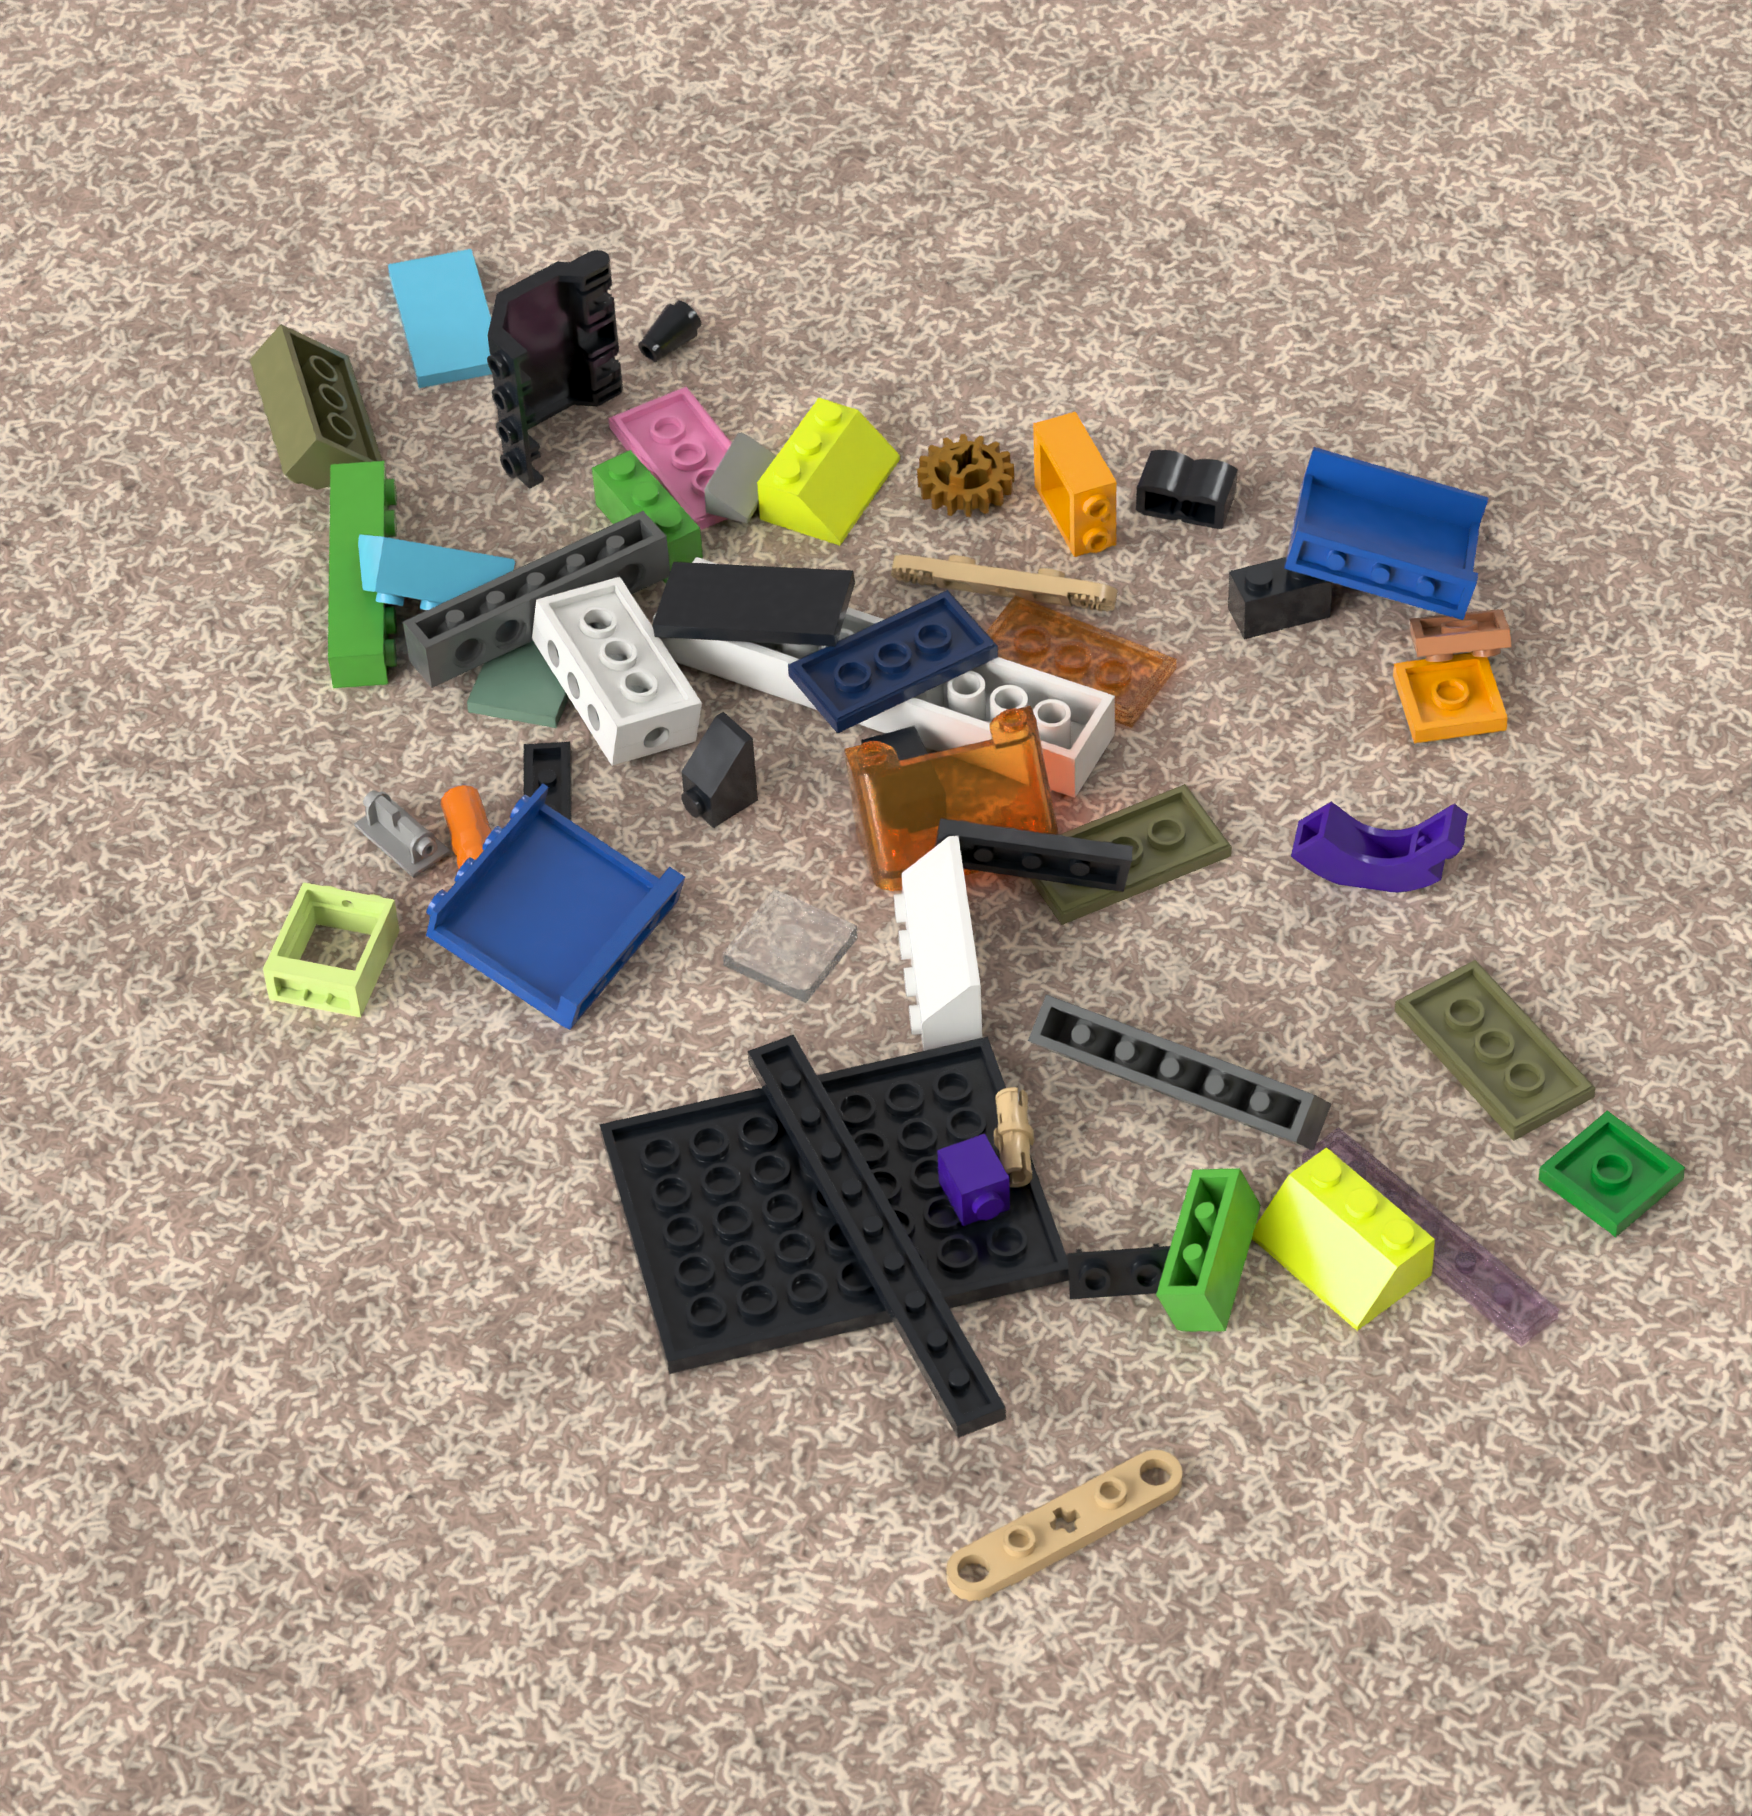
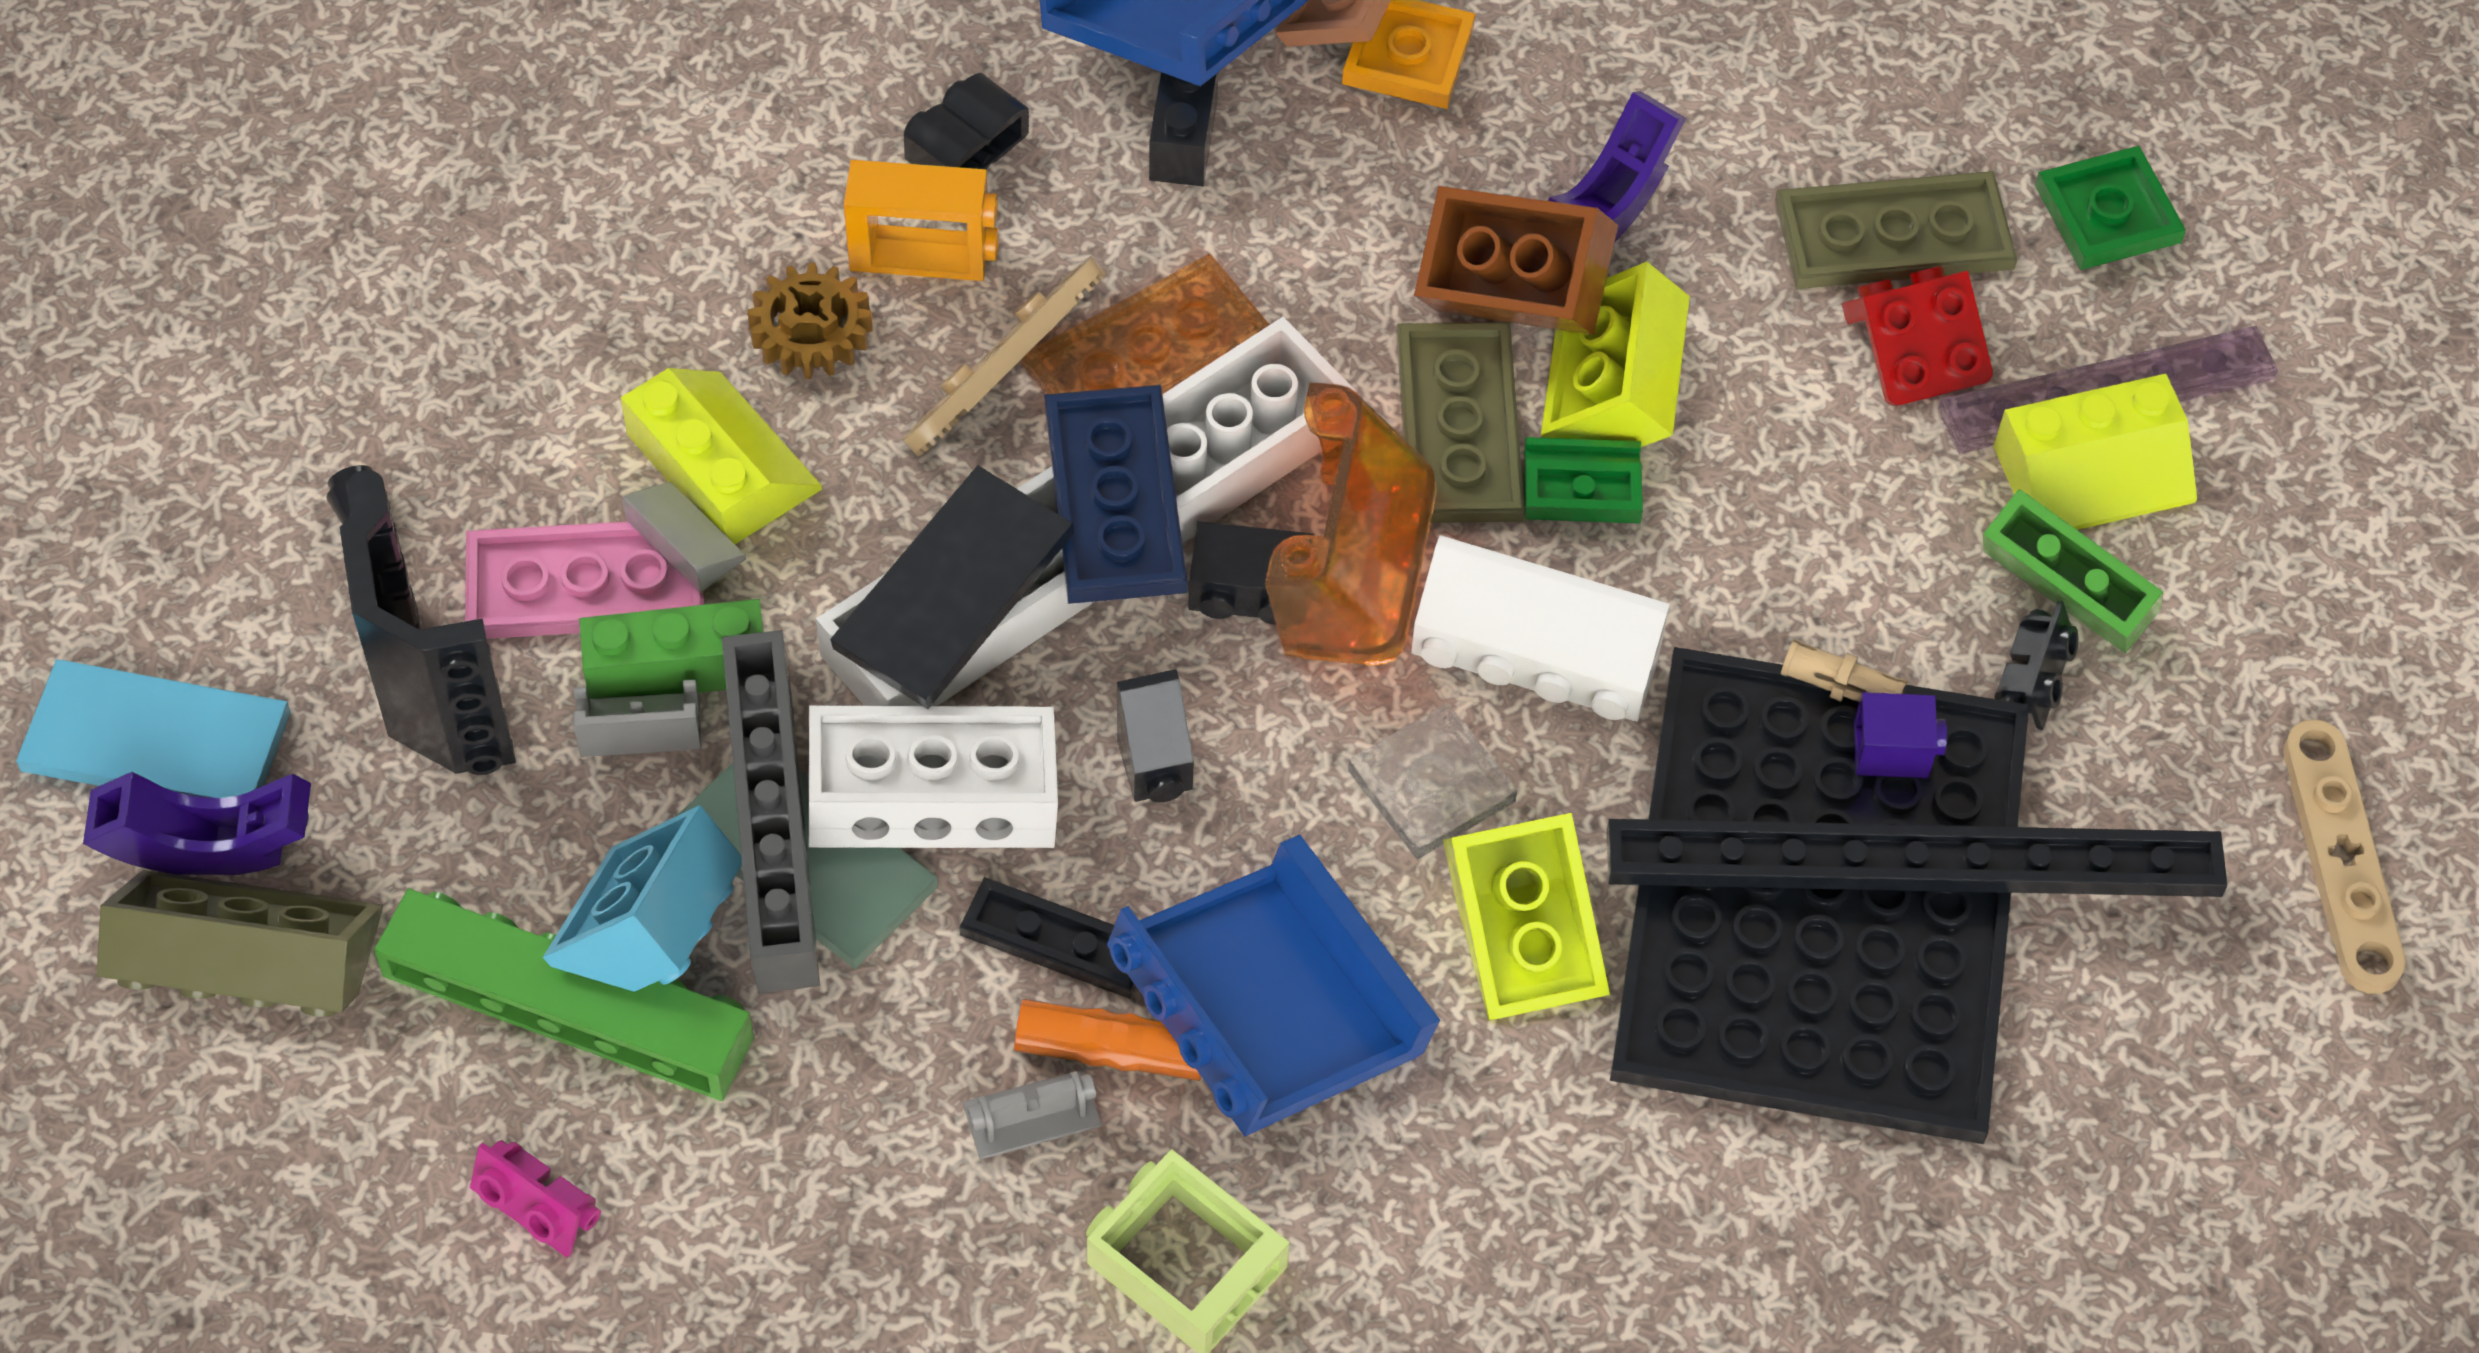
camera: 70 degrees left, 10 degrees up
(216, 606) = (512, 1181): none -> dark pink hinge
(375, 351) = (194, 834): none -> dark purple arch
(578, 512) = (637, 722): none -> light grey hinge
(704, 1032) = (1527, 916): none -> neon yellow slope
(1039, 855) = (1471, 481): black plate -> none
(1111, 938) = (1583, 480): none -> green plate
(1180, 1072) = (1830, 494): dark grey brick -> none
(1234, 921) = (1626, 373): none -> neon yellow slope
(1259, 806) = (1516, 259): none -> dark orange brick
(1389, 1091) = (1923, 335): none -> red bracket

